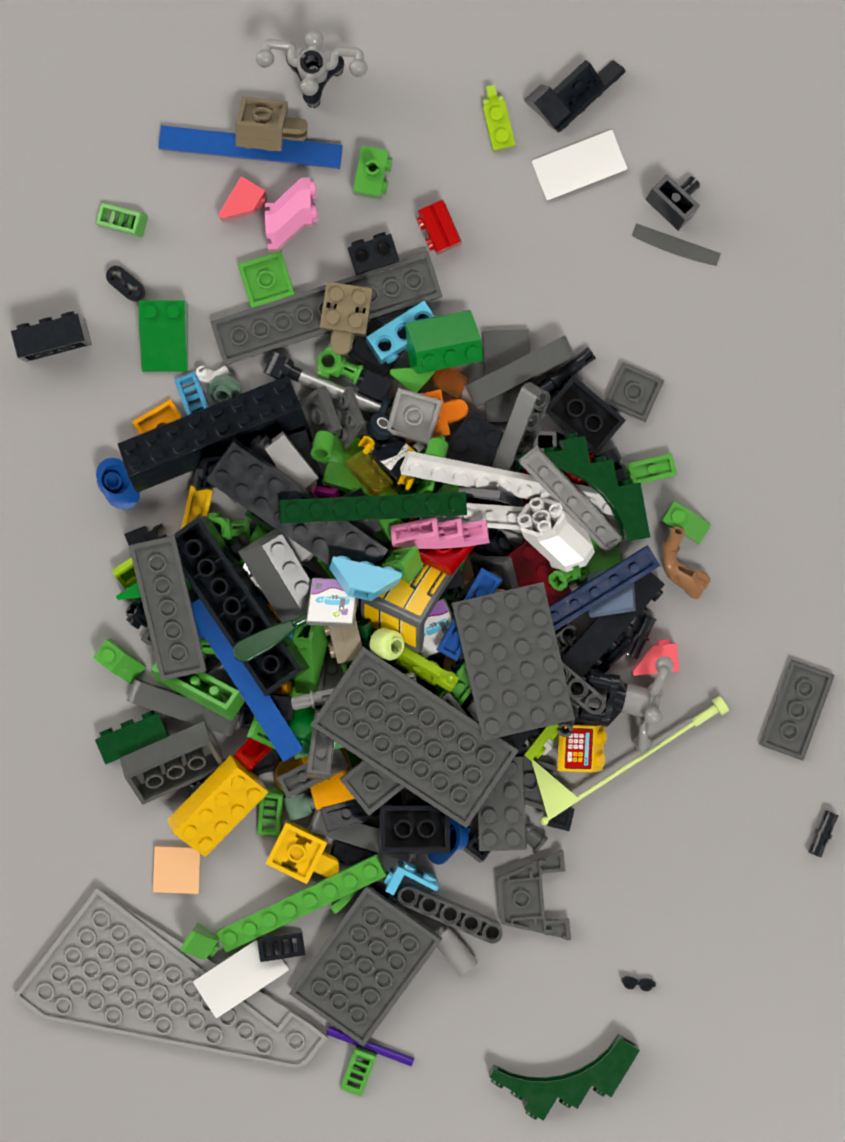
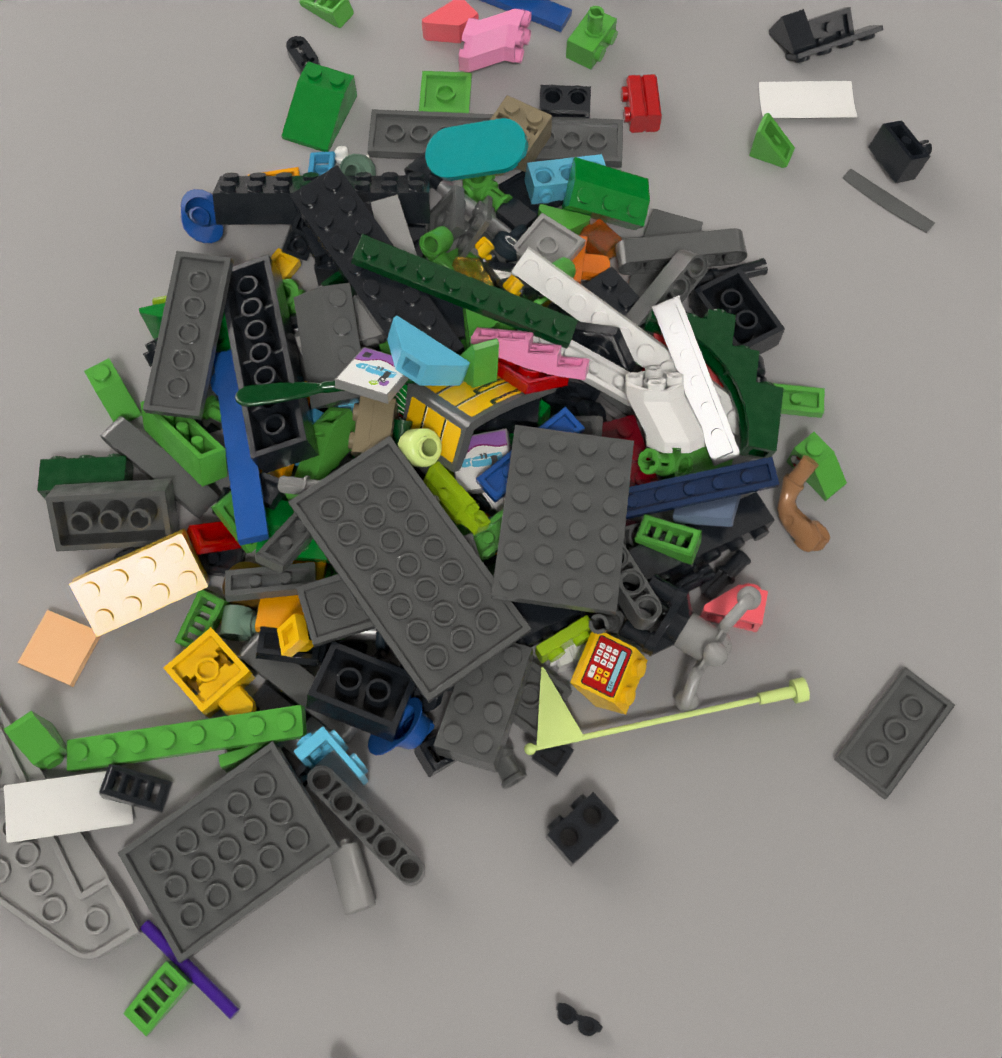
camera: 25 degrees right, 20 degrees down
(51, 336) = (204, 67): black brick -> none
(322, 347) = (476, 149): none -> teal tile
(349, 810) = (294, 636): none -> yellow tile
(497, 120) = (736, 37): lime hinge -> none
(523, 901) = (466, 842): dark grey wing -> none
(564, 229) = (771, 143): none -> bright green slope
(604, 863) = (586, 833): none -> black brick
(611, 635) = (665, 547): none -> bright green slope
(634, 392) = (803, 319): dark grey tile -> none
(823, 833) = (890, 904): black pin -> none

